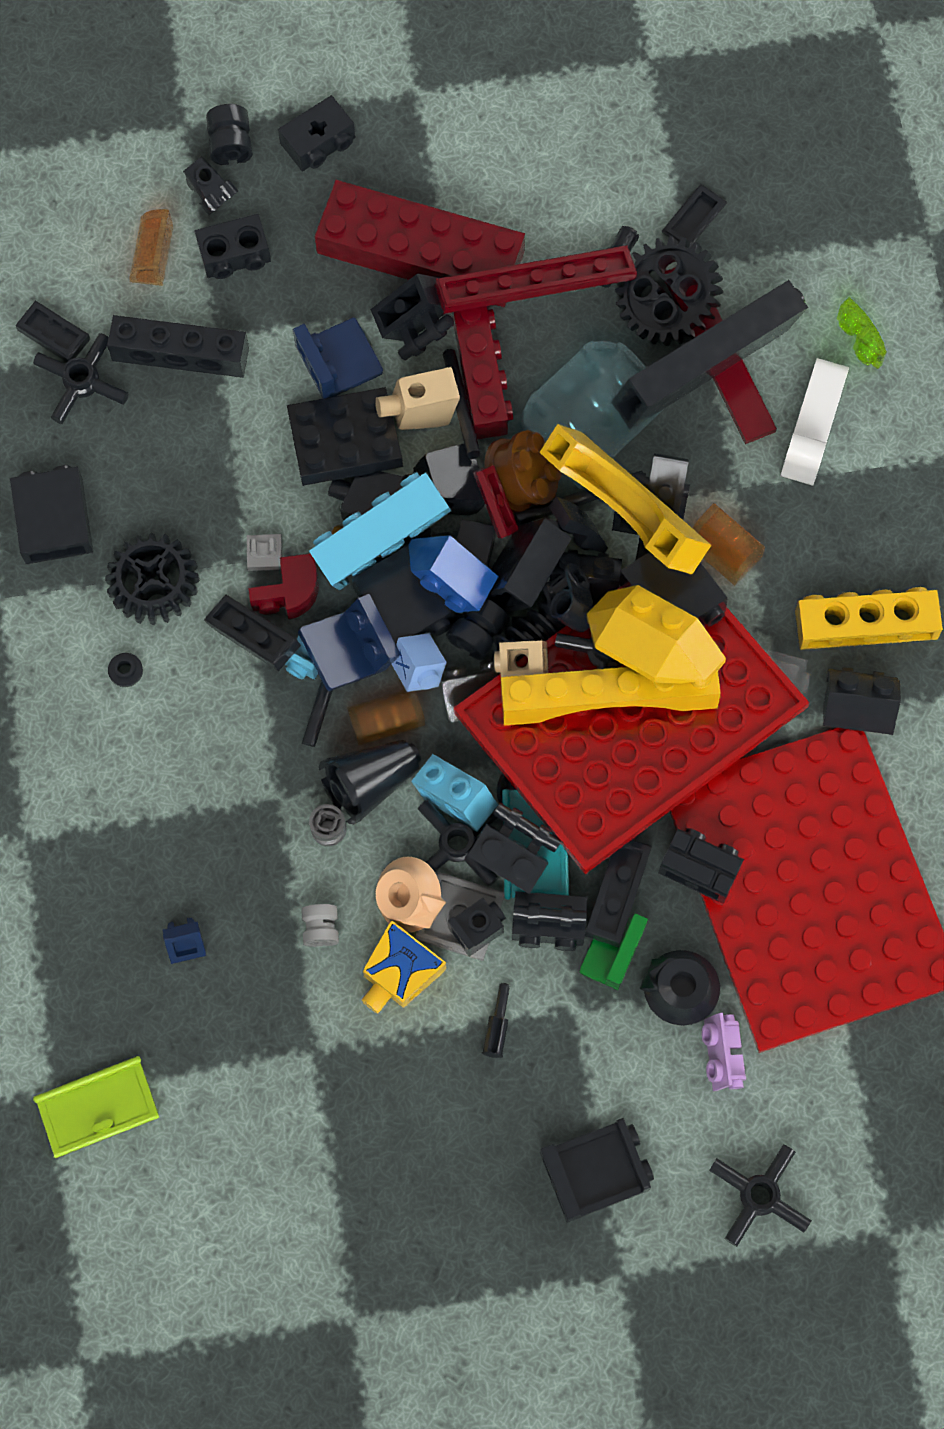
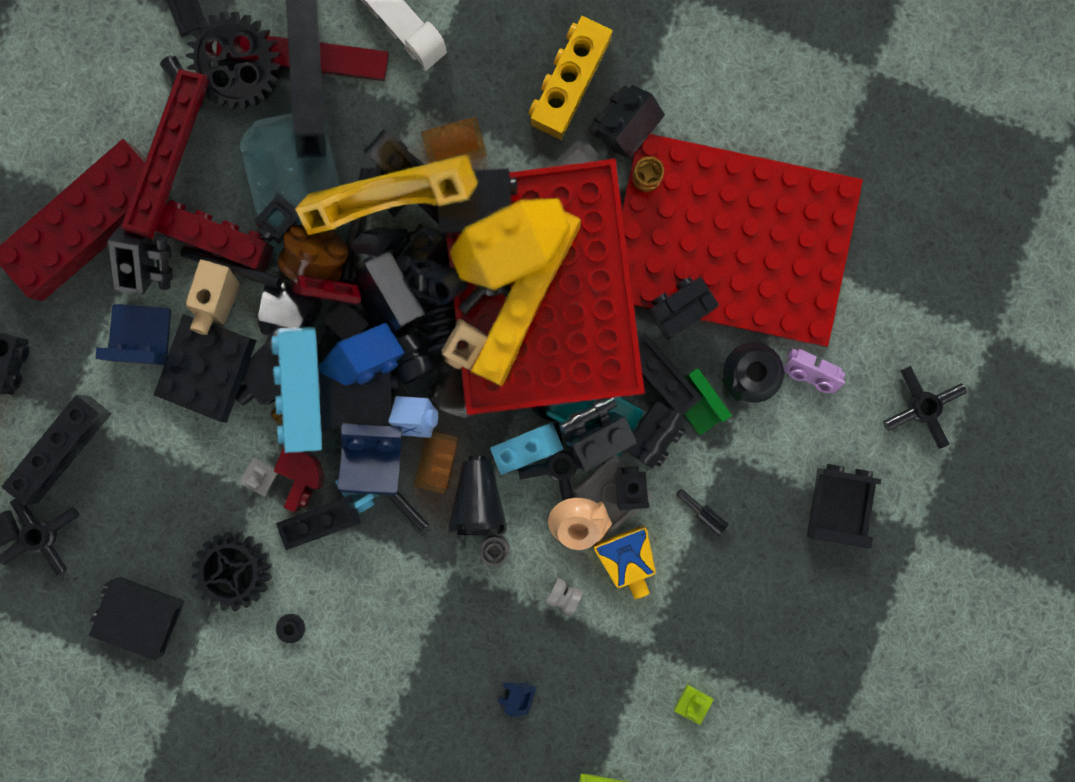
camera: 60 degrees left, 15 degrees up
(283, 1134) = (693, 704): none -> lime tile
(520, 410) = (268, 230): none -> black window
(821, 743) = (651, 169): none -> pearl gold wheel

